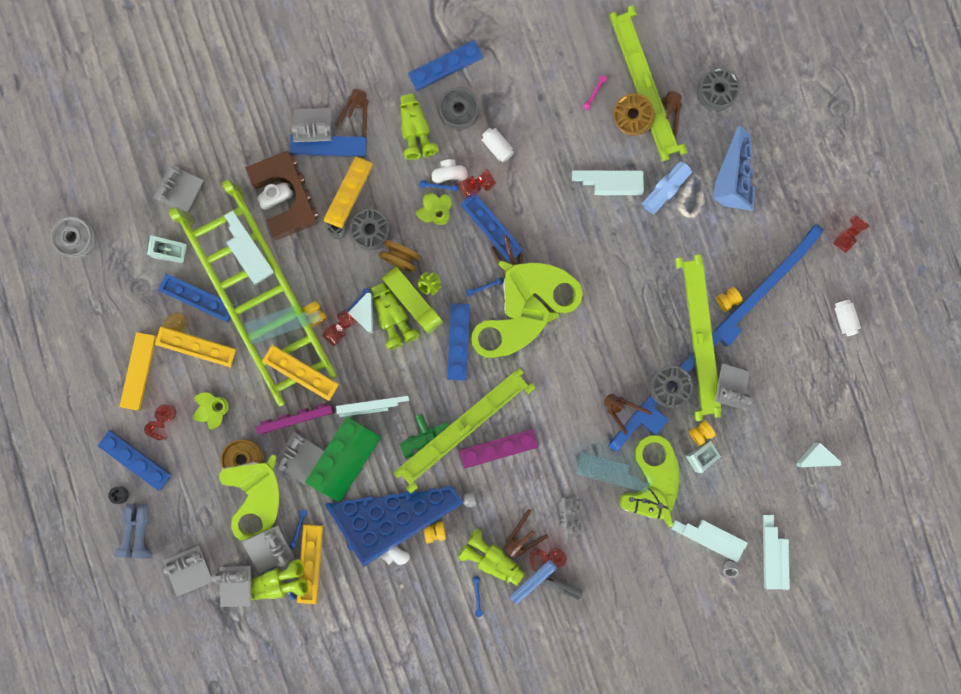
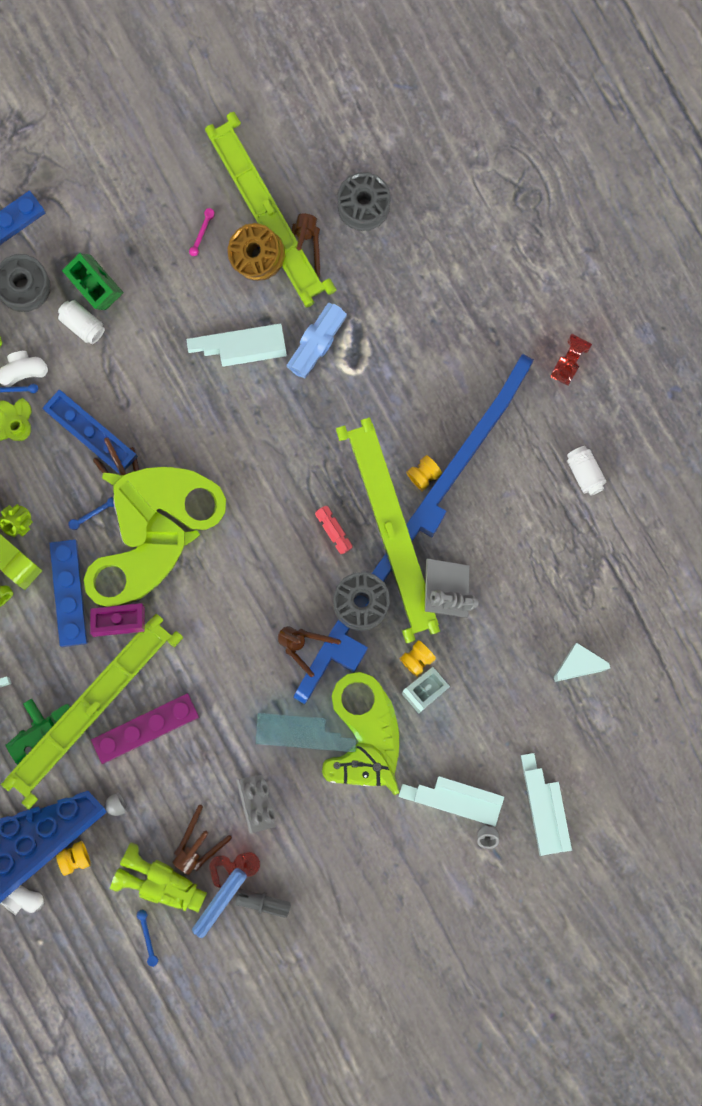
camera: 15 degrees left, 5 degrees down
(473, 186) = (53, 382): clear red leg -> none
(491, 368) = (117, 620): none -> magenta plate
(511, 116) = (92, 281): none -> green brick
(656, 329) = (333, 530): none -> coral axle
(734, 178) = (404, 313): medium blue wedge -> none

